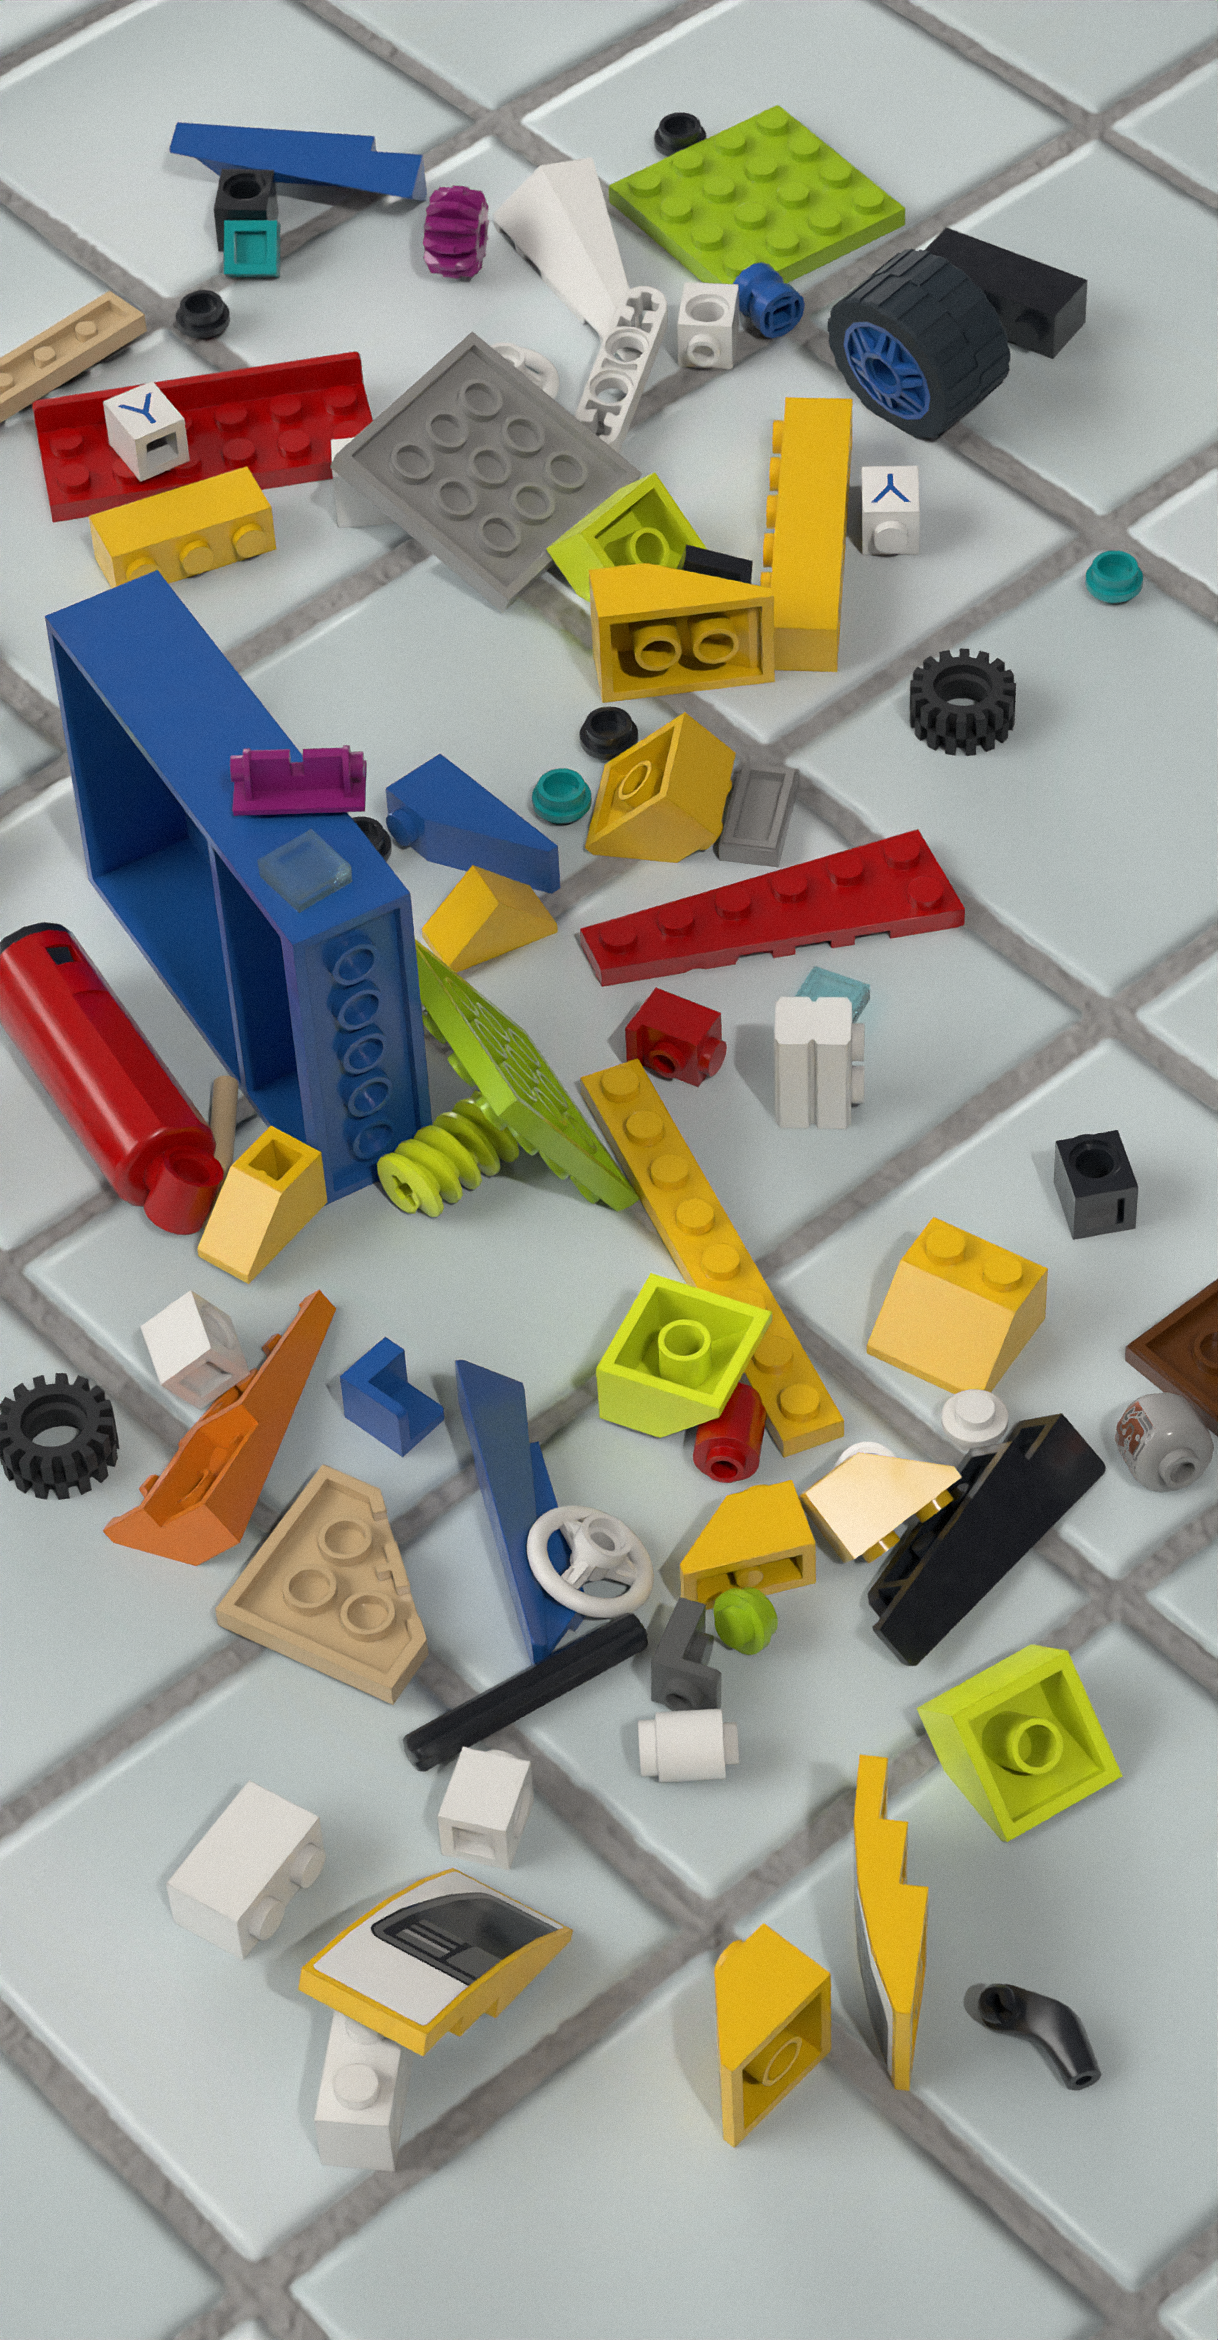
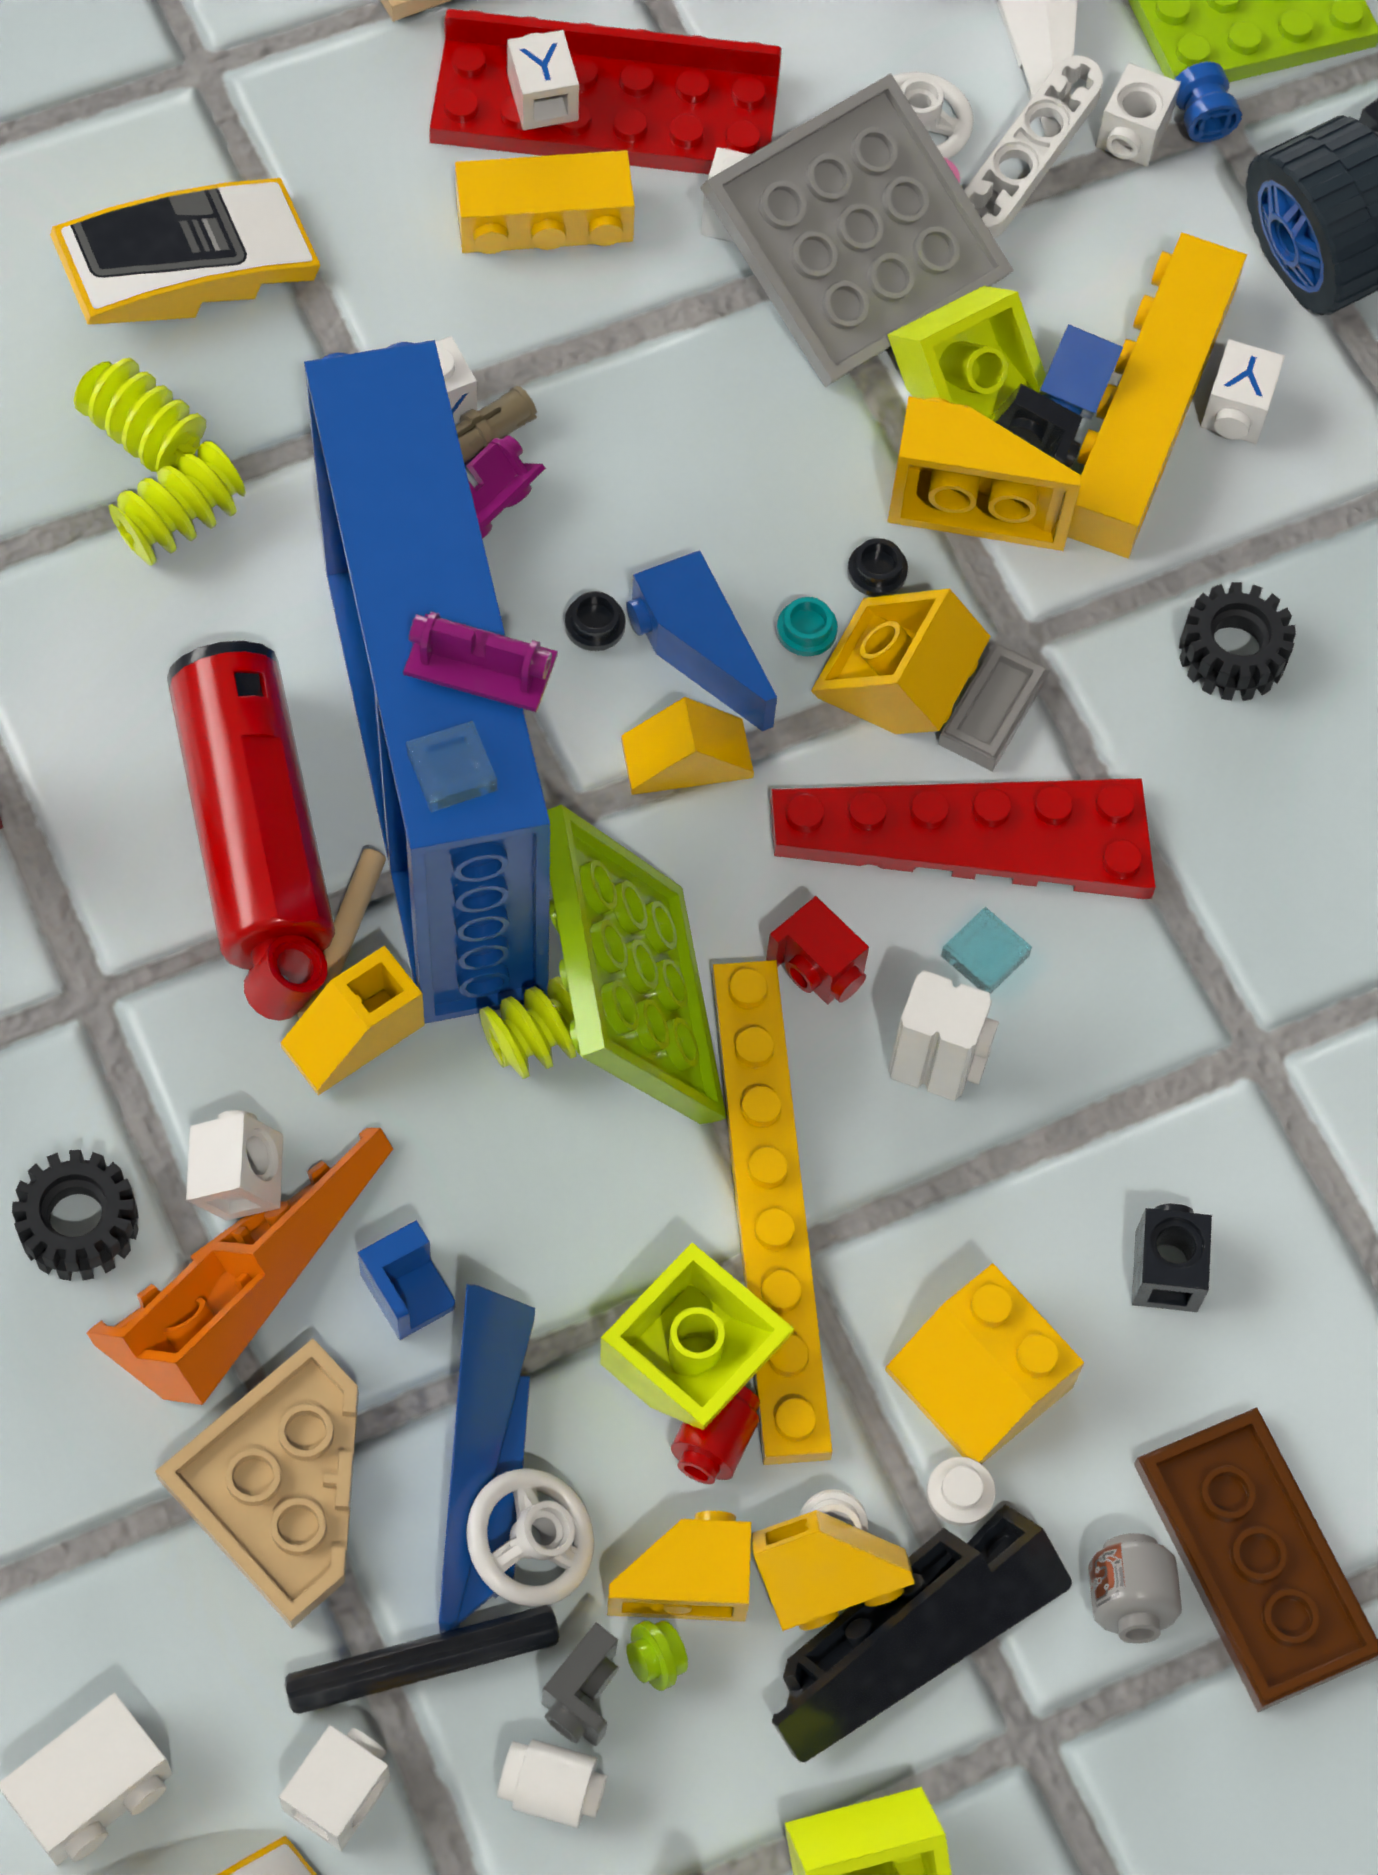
camera: 10 degrees right, 15 degrees up
(737, 521) = (1080, 371): none -> blue brick

